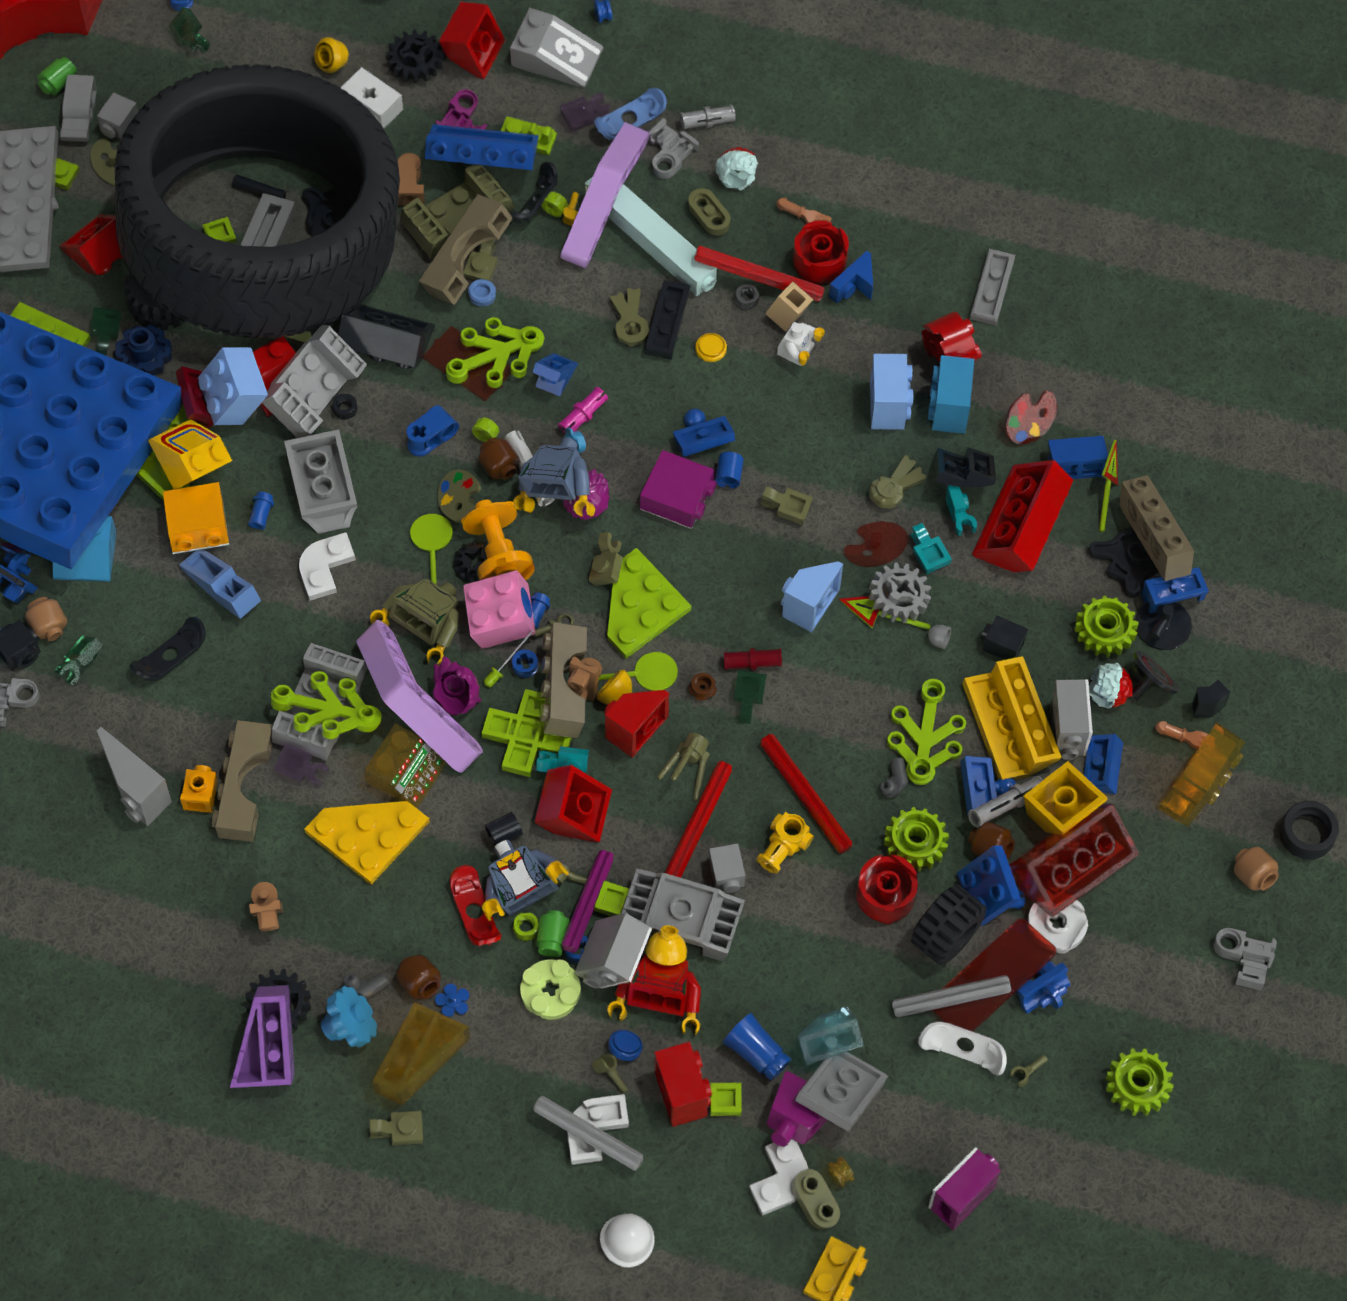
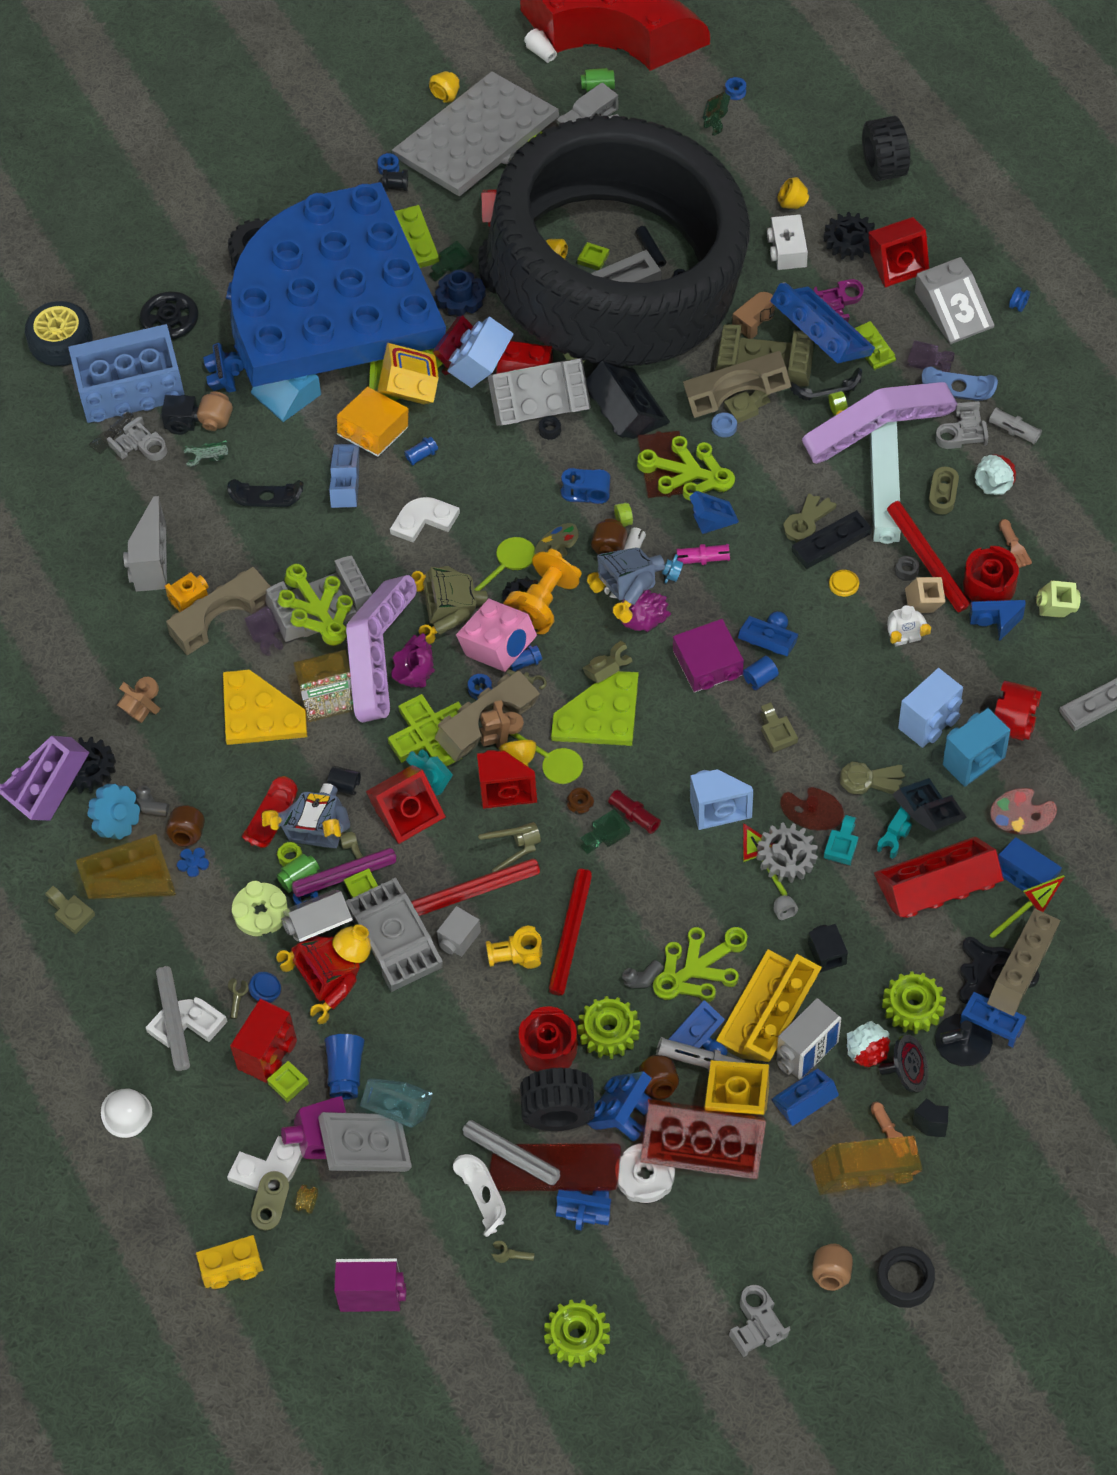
camera: 50 degrees right, 5 degrees down
(322, 481) = (478, 461): light grey slope -> none
(494, 675) = (453, 677): lime piece -> none
(887, 230) = (1058, 599): none -> yellowish green brick

